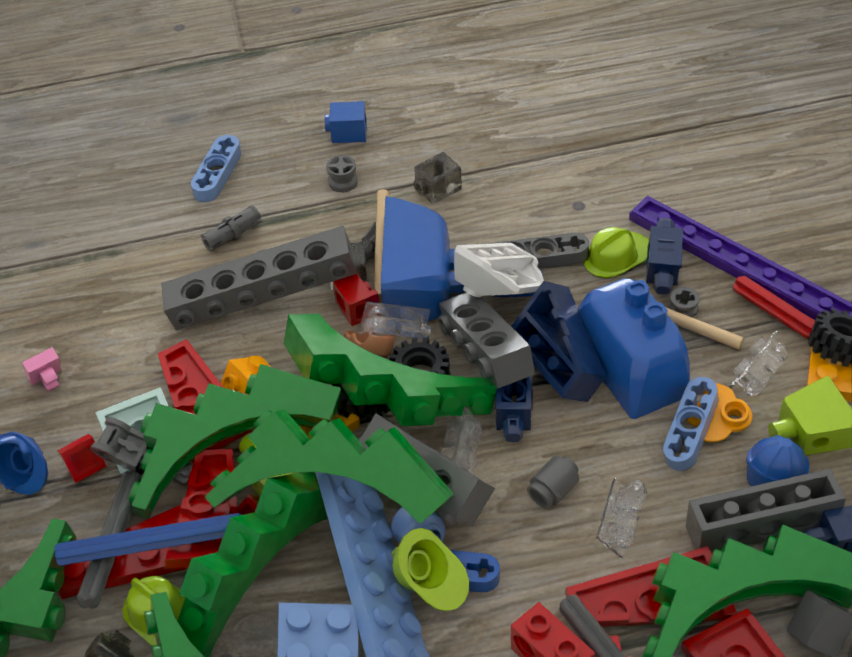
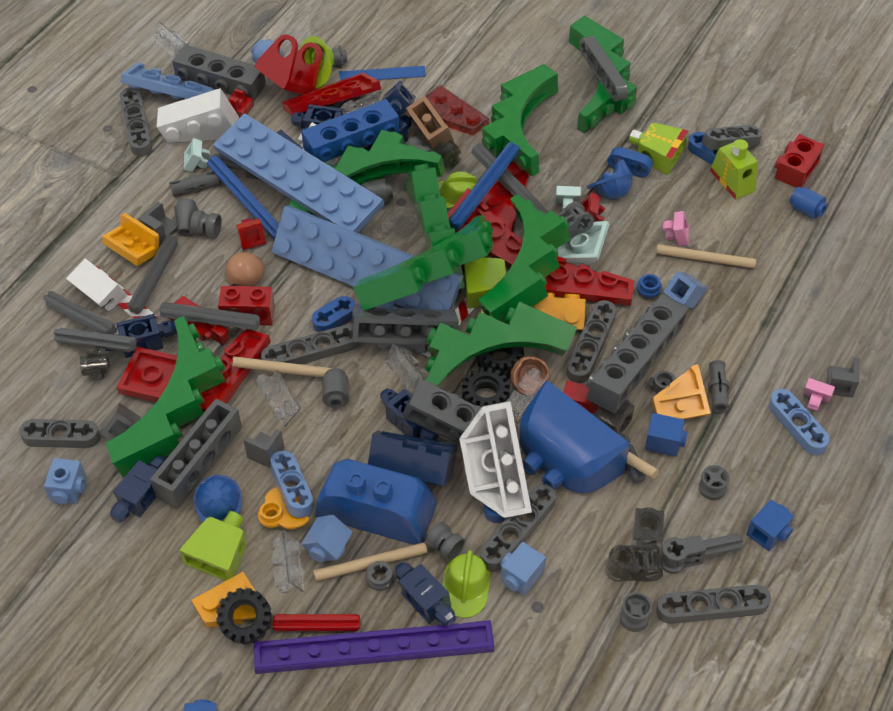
camera: 130 degrees right, 5 degrees up
(61, 337) = (706, 256): none -> tan bar
(78, 488) = (567, 195): none -> light aqua tile
(136, 164) = (844, 379): none -> dark grey panel
(136, 304) = (685, 289): none -> medium blue brick
(147, 346) = (649, 286): none -> blue plate
(173, 166) = (818, 392): none -> bright pink tile
(263, 337) = (592, 341): none -> dark grey beam
(268, 232) = (683, 397): none -> light orange wing
(330, 213) = (665, 434): none -> blue brick
(423, 142) = (693, 550): none -> dark grey connector
(430, 570) = (339, 281): lime piece -> none
(479, 169) = (639, 561): none -> clear smoke piece
(481, 132) = (714, 609): none -> dark grey beam
(517, 142) = (635, 605): none -> dark grey wheel
(532, 548) = (309, 344): none -> dark grey beam
(567, 213) = (522, 568): none -> medium blue brick
(586, 540) = (282, 367): none -> tan bar
(601, 272) = (445, 541): none -> dark grey wheel
(683, 475) = (264, 447): none -> dark grey panel
(710, 348) = (326, 538): none -> medium blue brick

